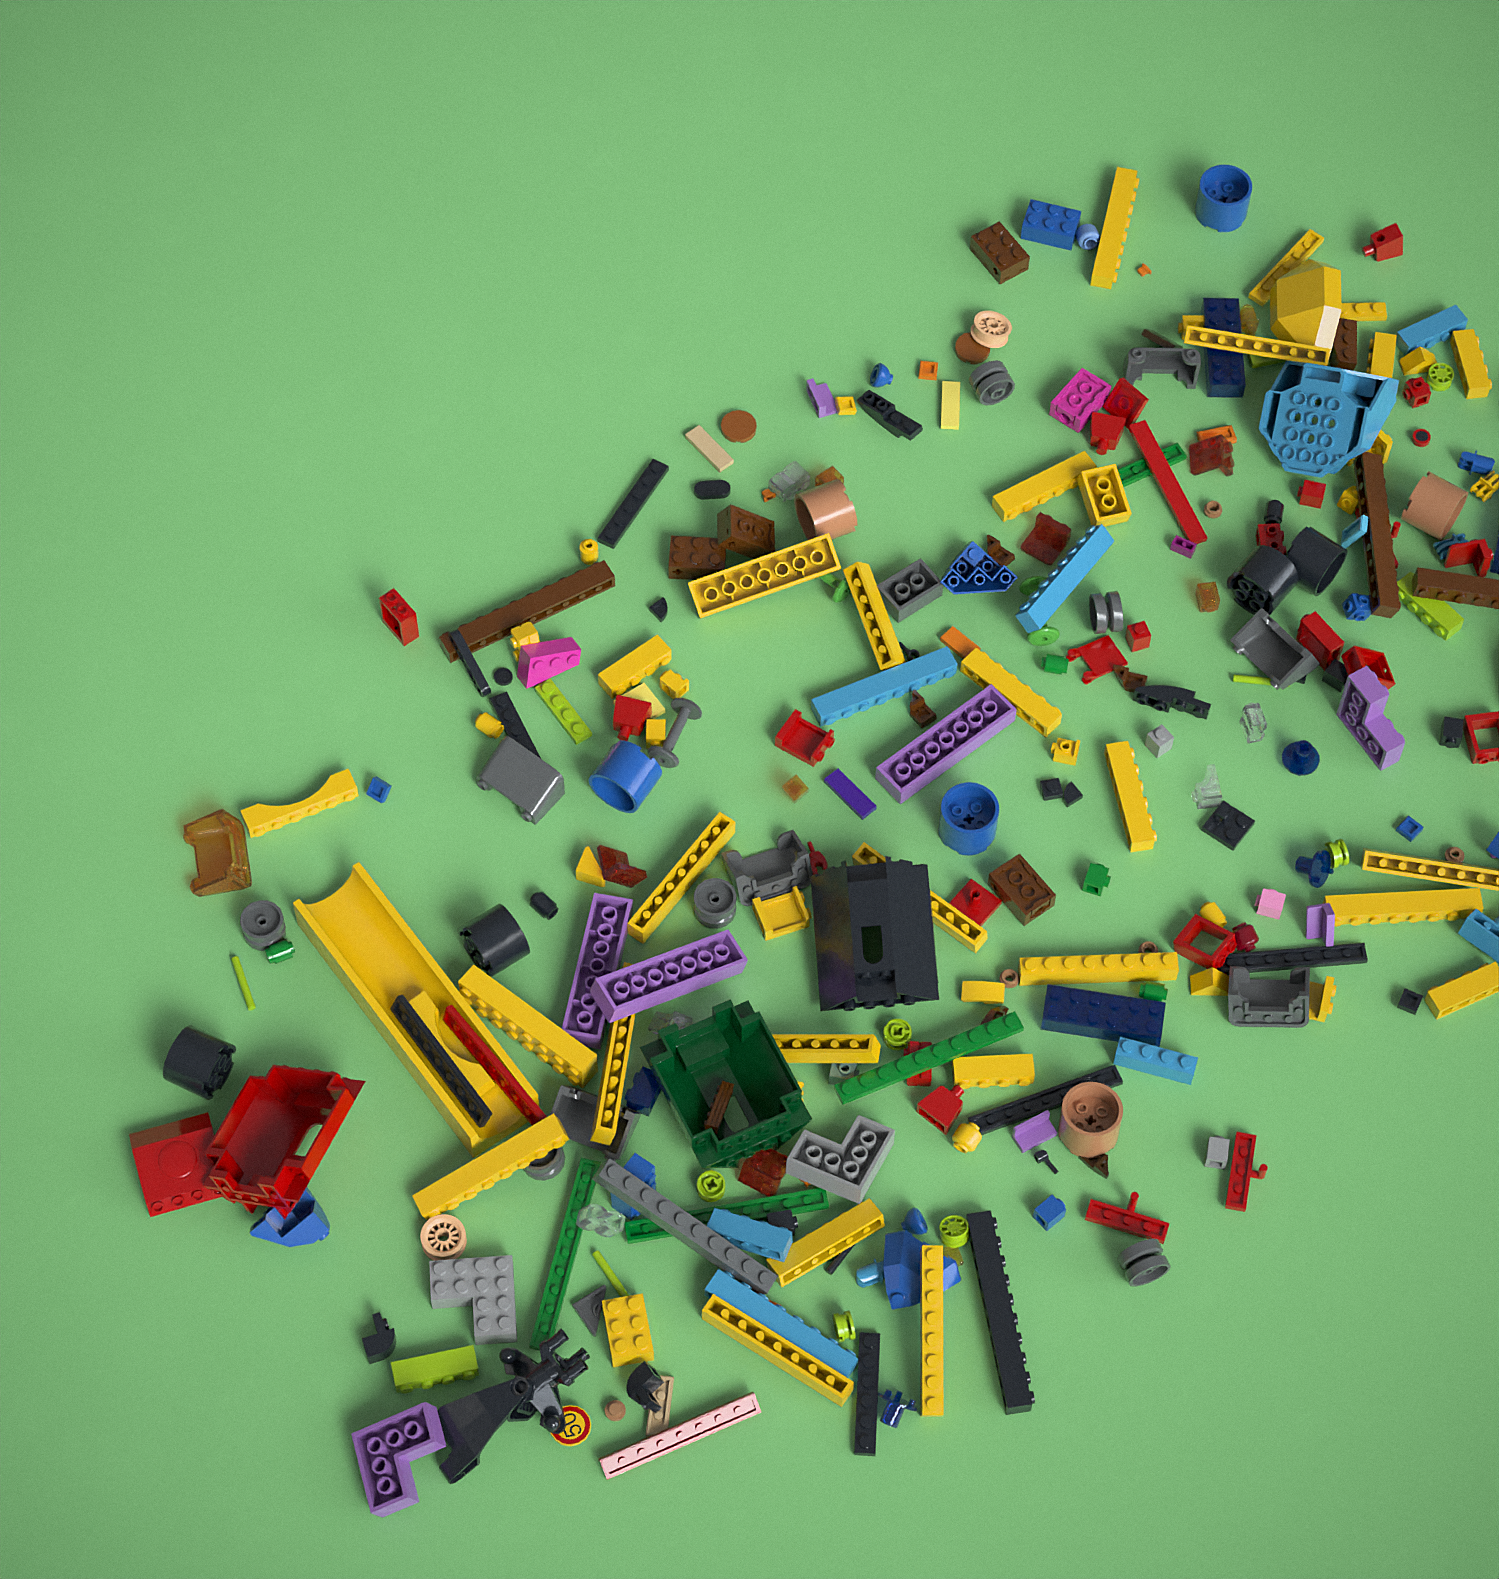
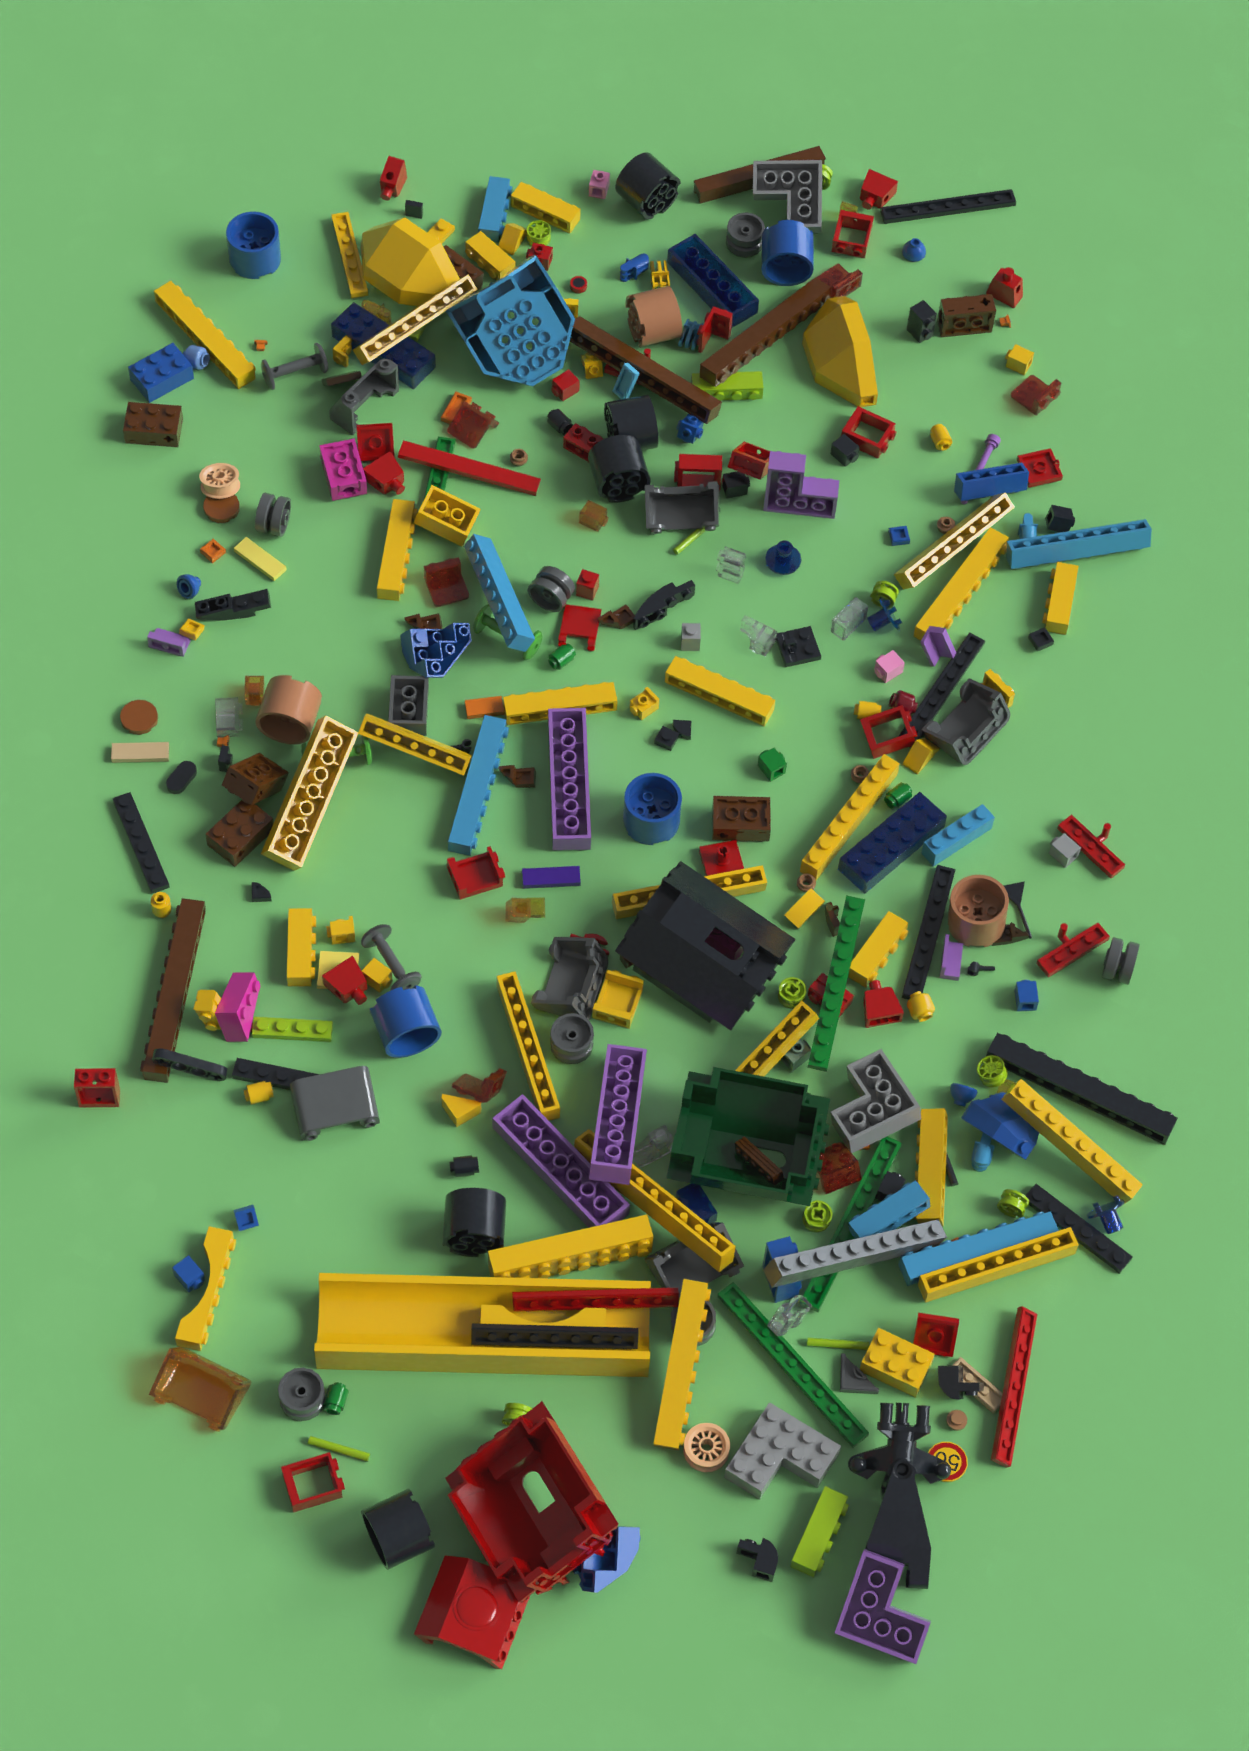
camera: 55 degrees left, 0 degrees up
(186, 970) = (296, 1468): none -> red window
(302, 784) = (189, 1274): none -> blue brick
(367, 1088) = (513, 1411): none -> lime wheel
(503, 676) = (218, 1051): black piece -> none
(673, 1342) = (936, 1333): none -> red tile
(752, 503) = (225, 758): none -> black plate
(813, 801) = (537, 907): none -> clear yellow tile
(1140, 302) = (271, 373): none -> dark grey hose
(1143, 1142) = (1015, 895): none -> black piece
(1183, 546) = (533, 499): magenta piece -> none
(1288, 843) = (849, 618): none -> clear brick
(1373, 278) = (414, 209): none -> black tile

